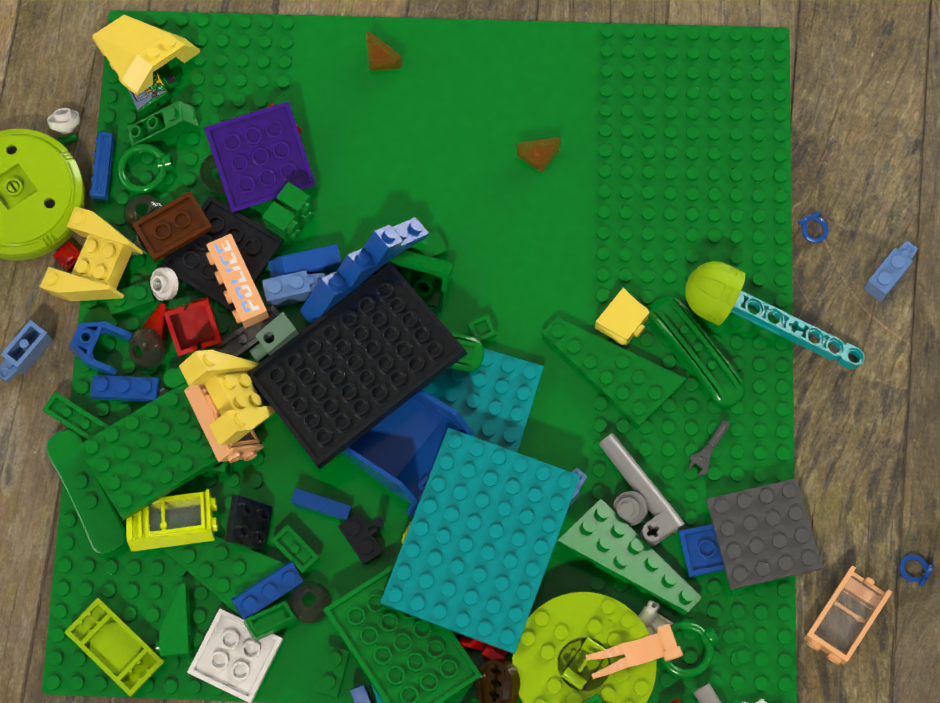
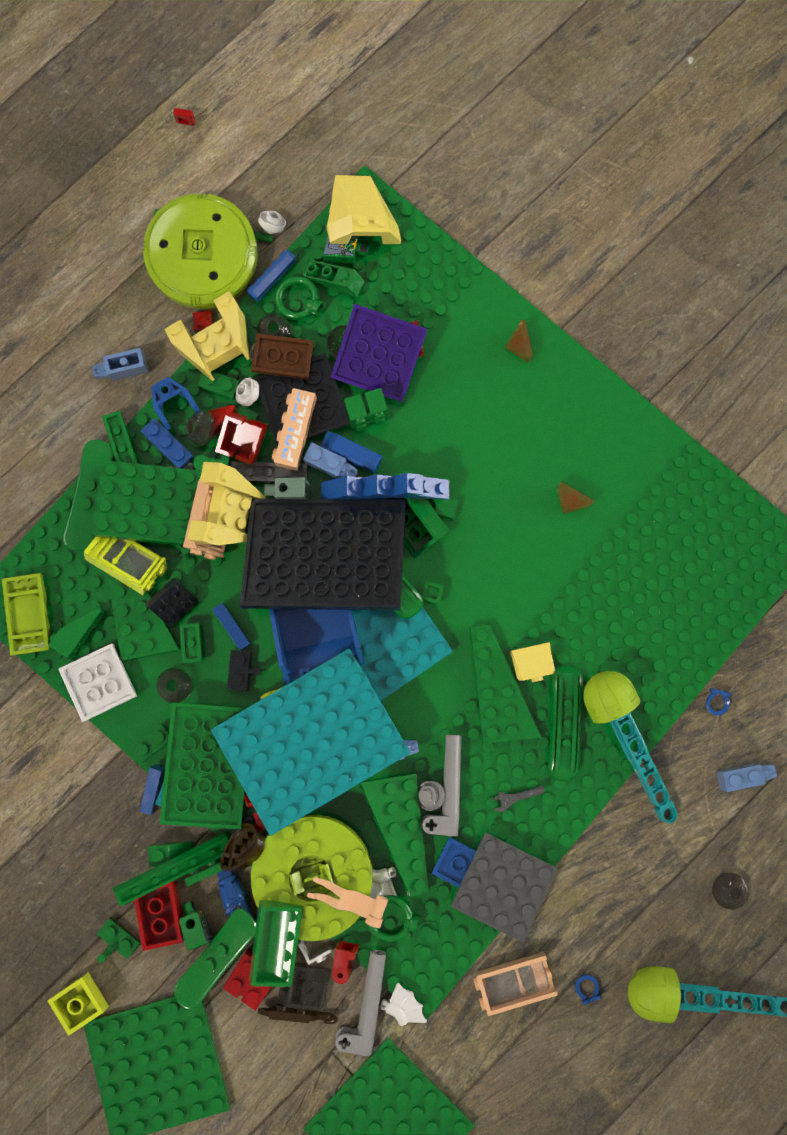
camera: 35 degrees right, 10 degrees up
(267, 590) = (150, 656): blue plate -> none
(270, 621) = (136, 678): green tile -> none

